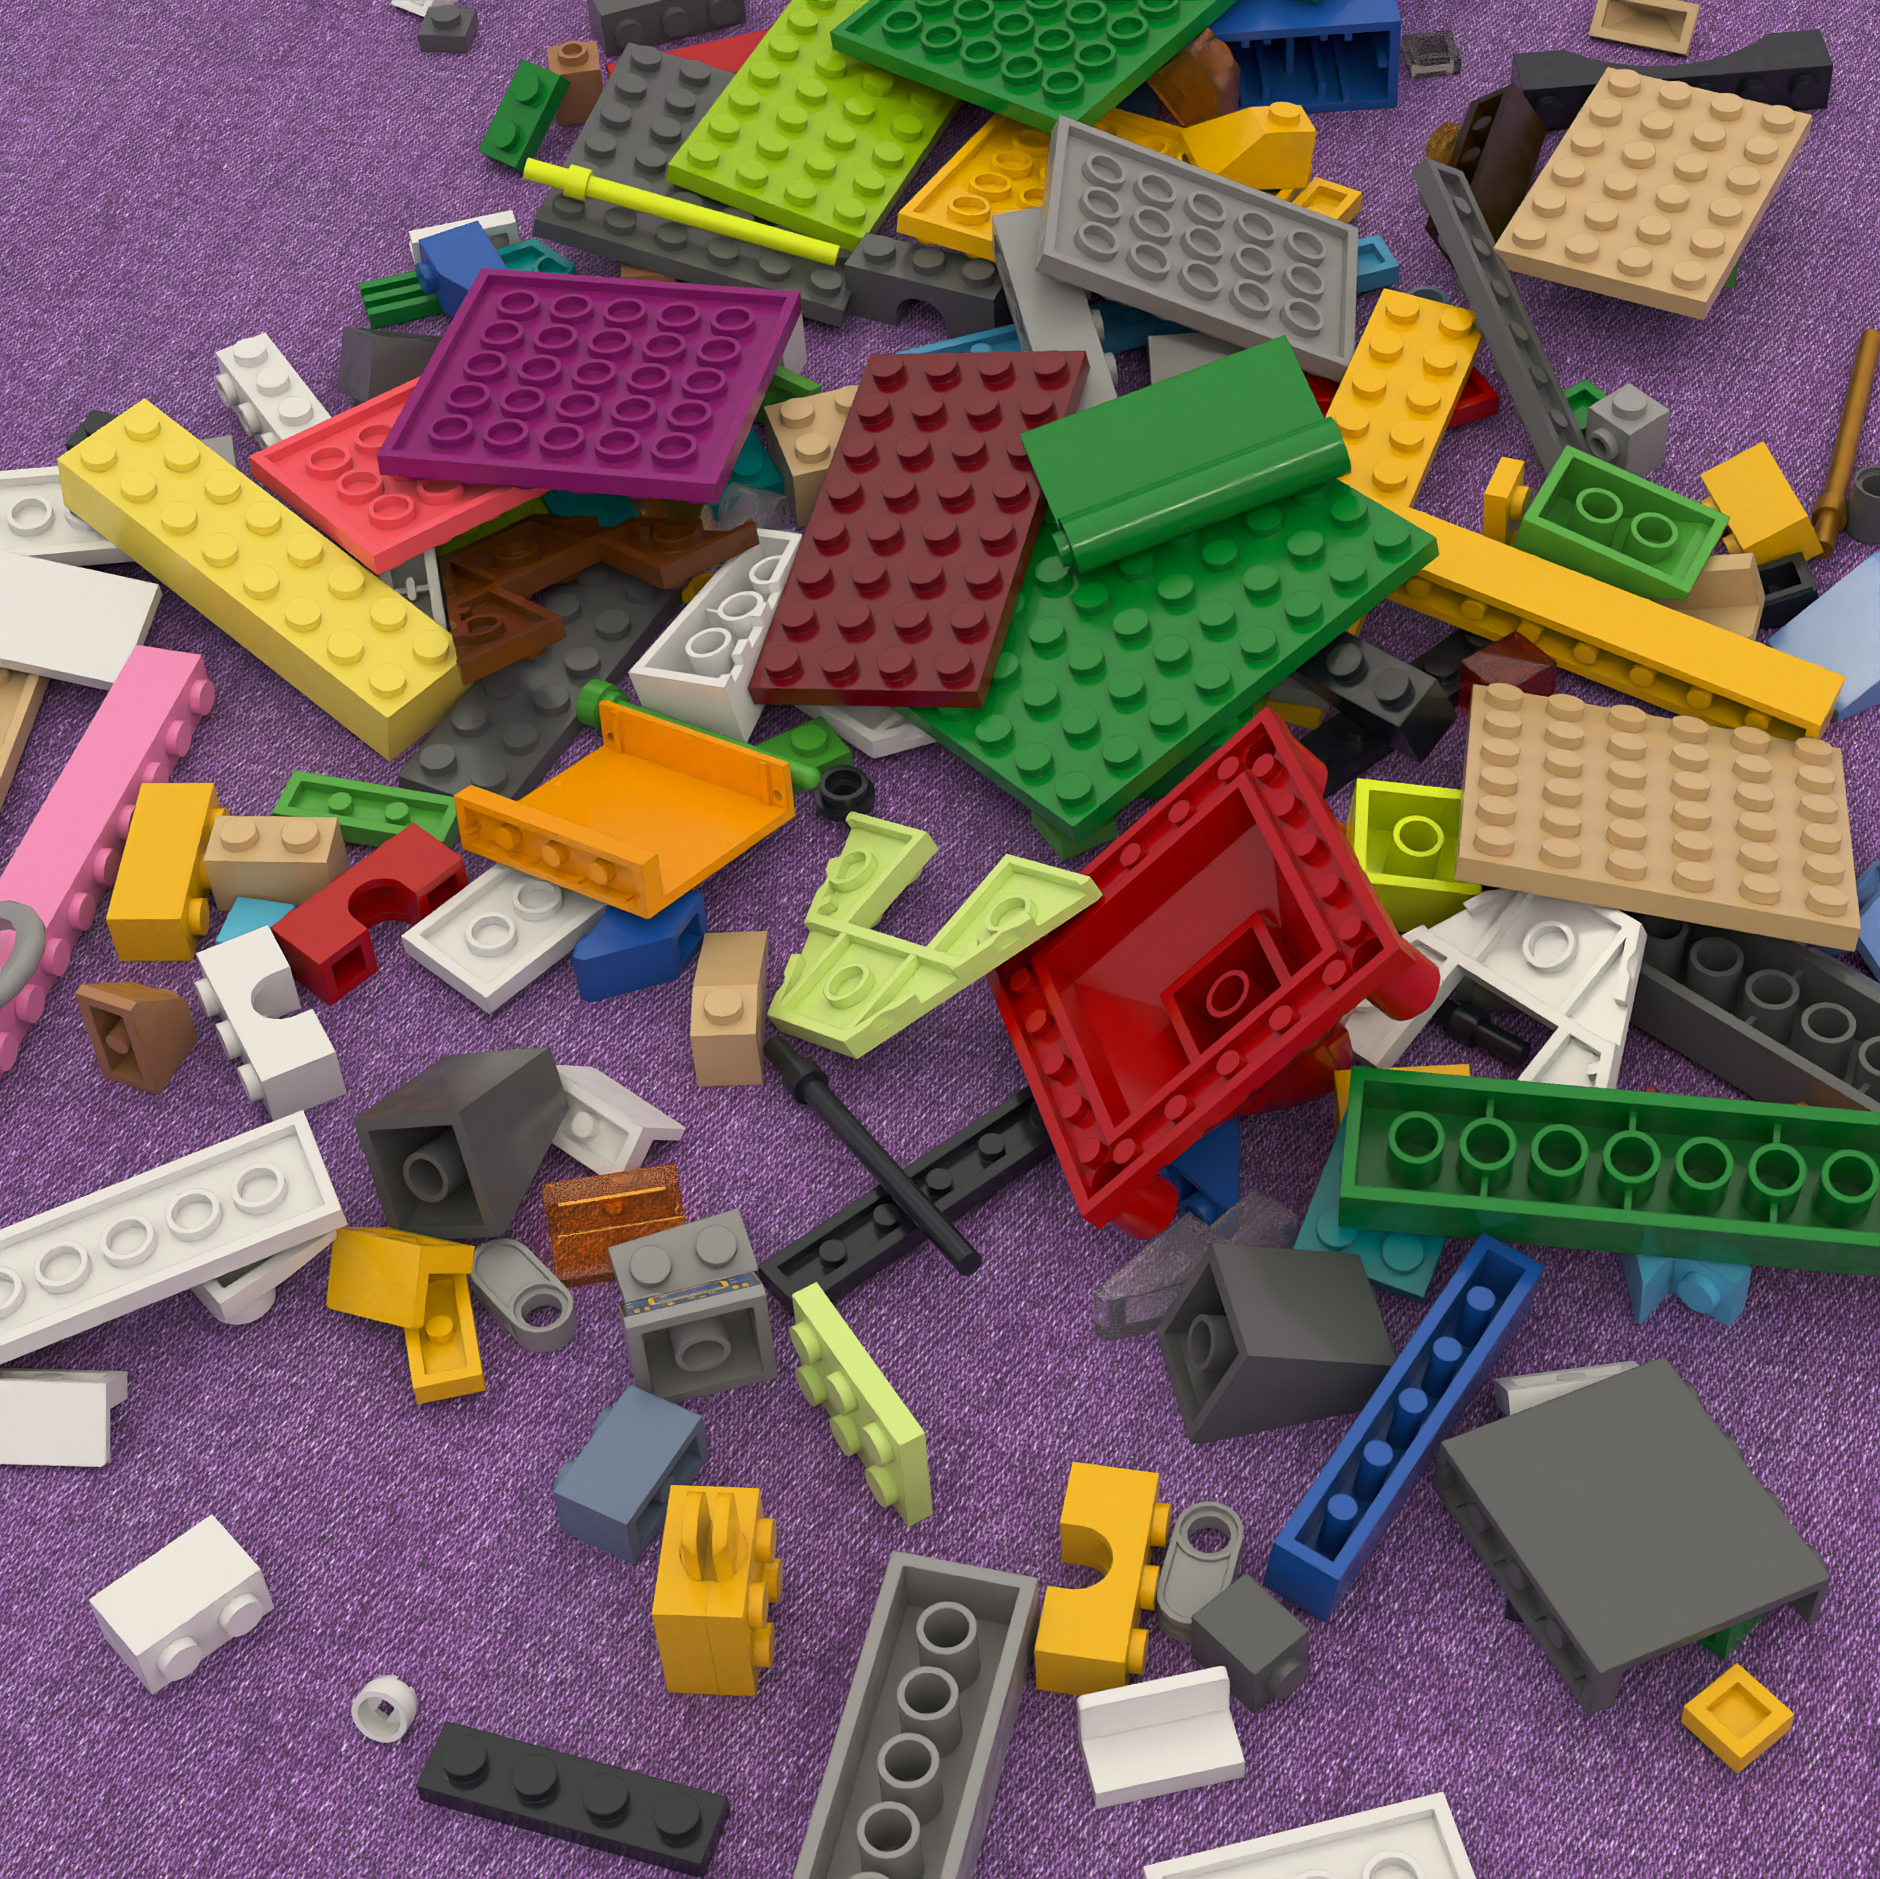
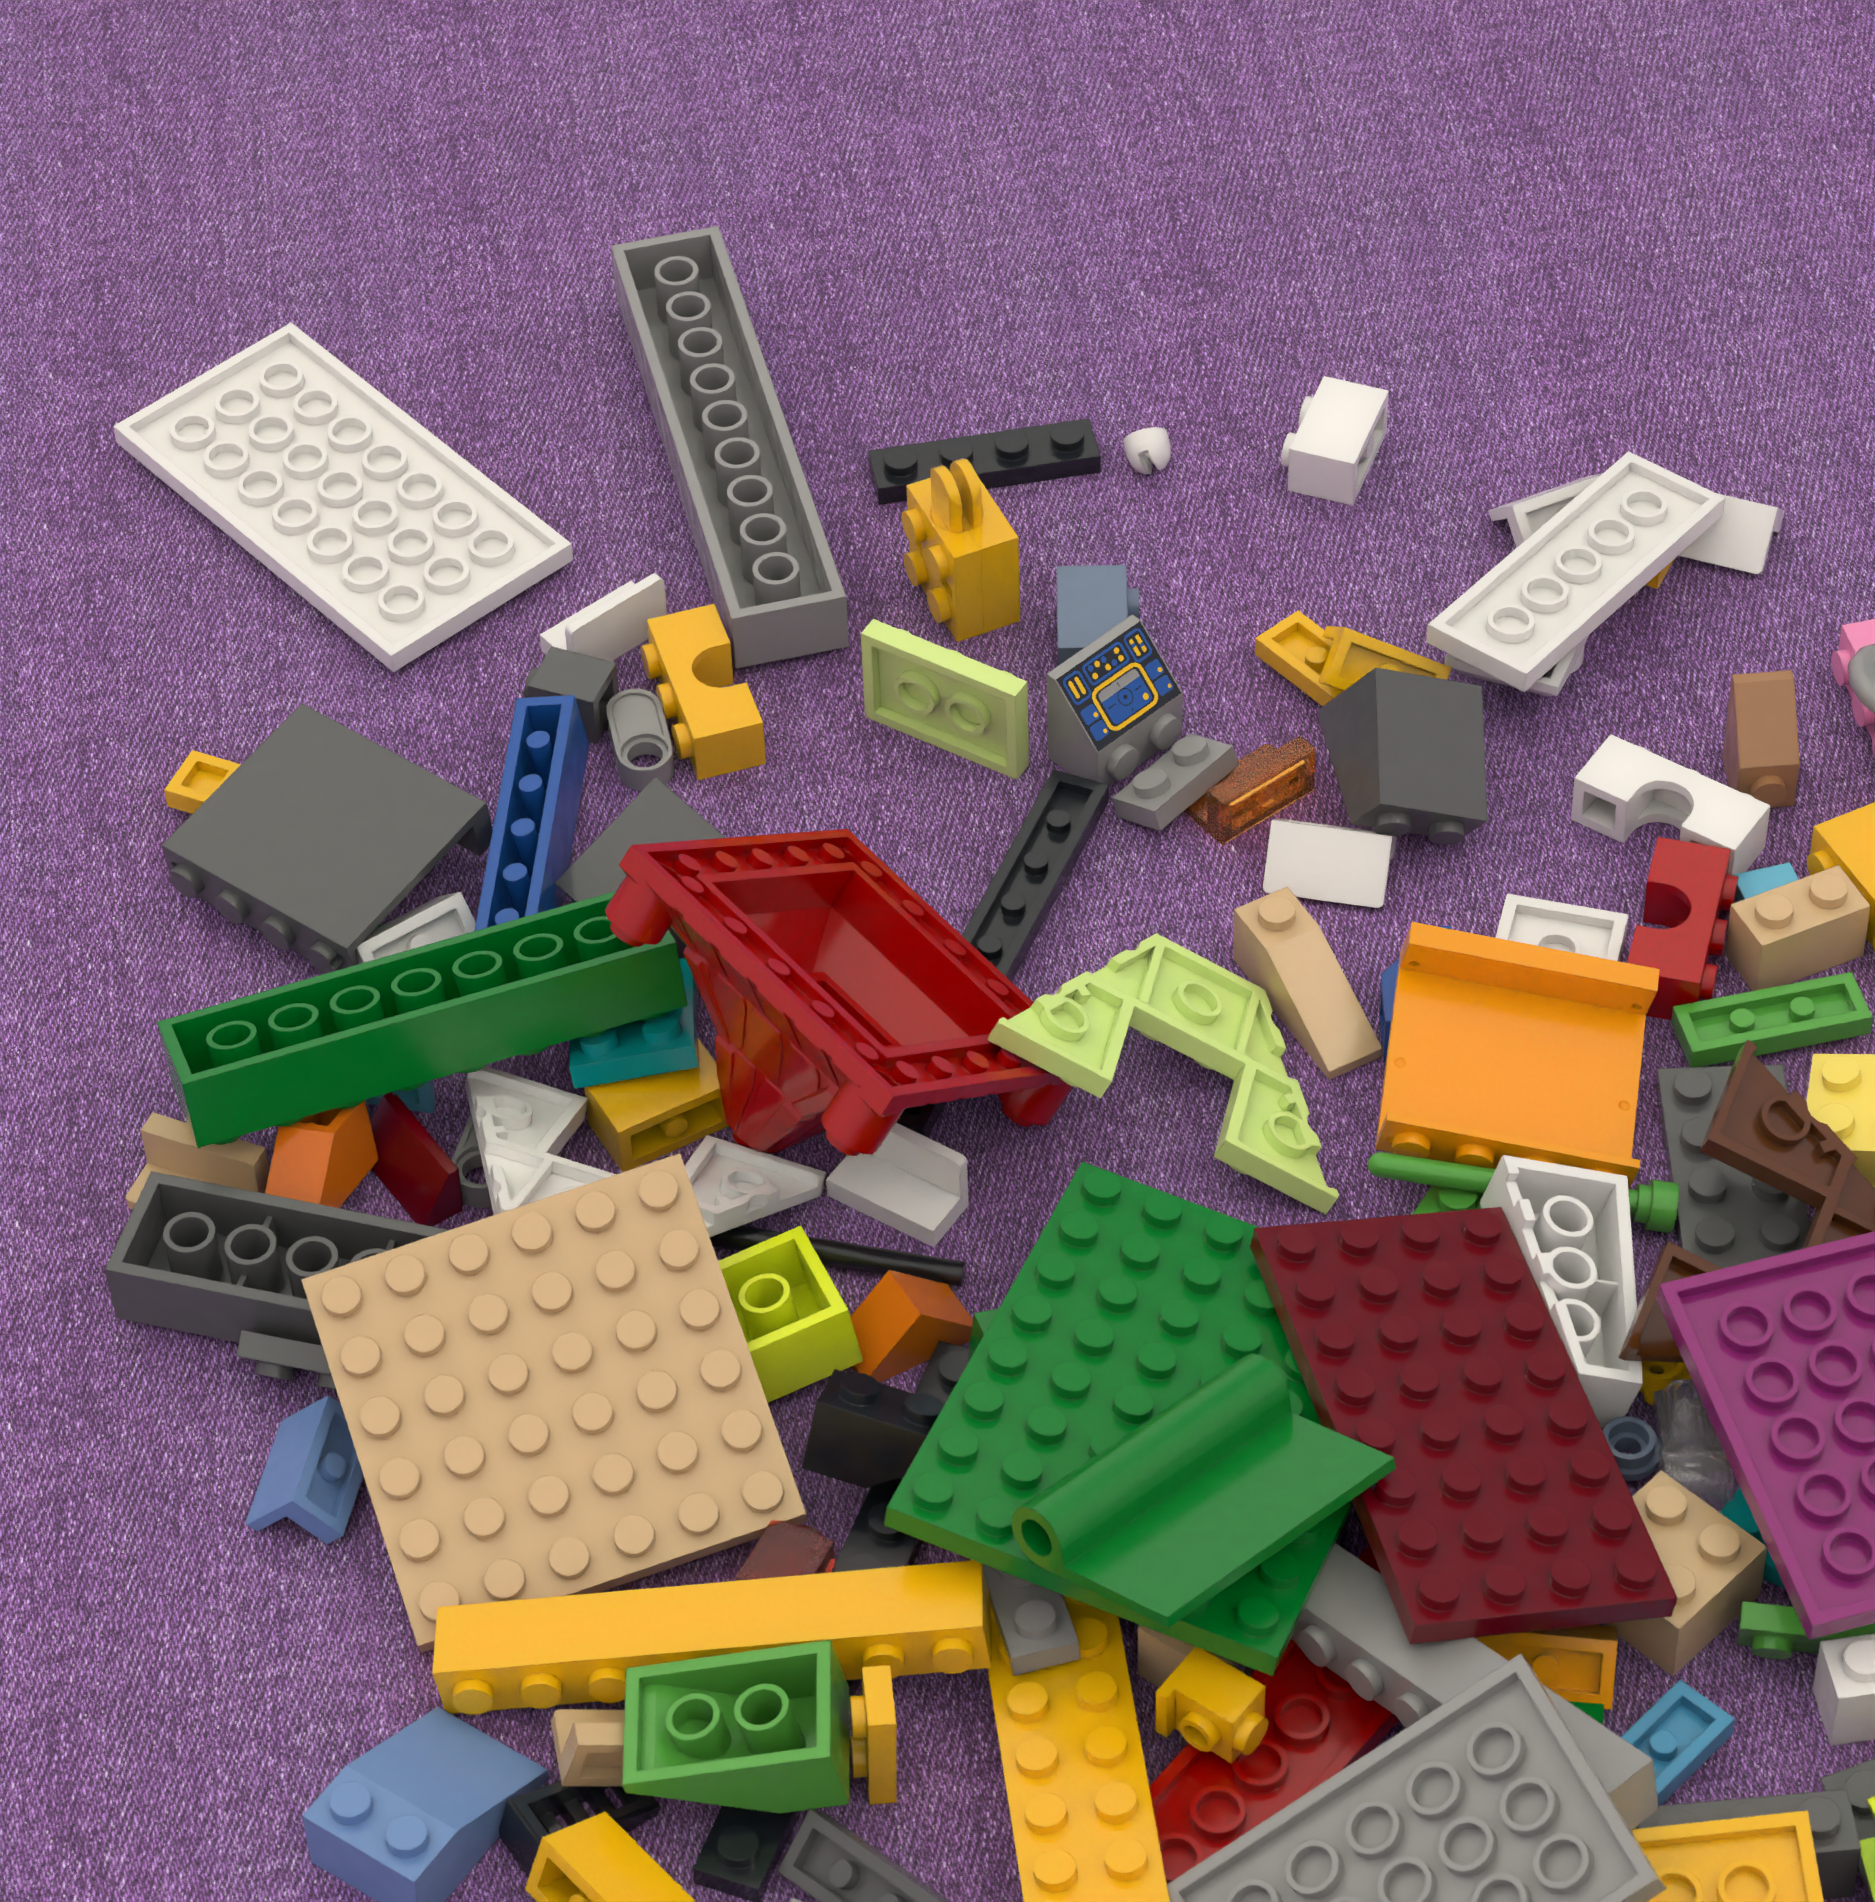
camera: 150 degrees right, 0 degrees up
(512, 1284) = (1290, 716): light grey piece -> none
(810, 1086) = (1069, 882): black bar -> none
(843, 791) = (1357, 1203): black plate -> none

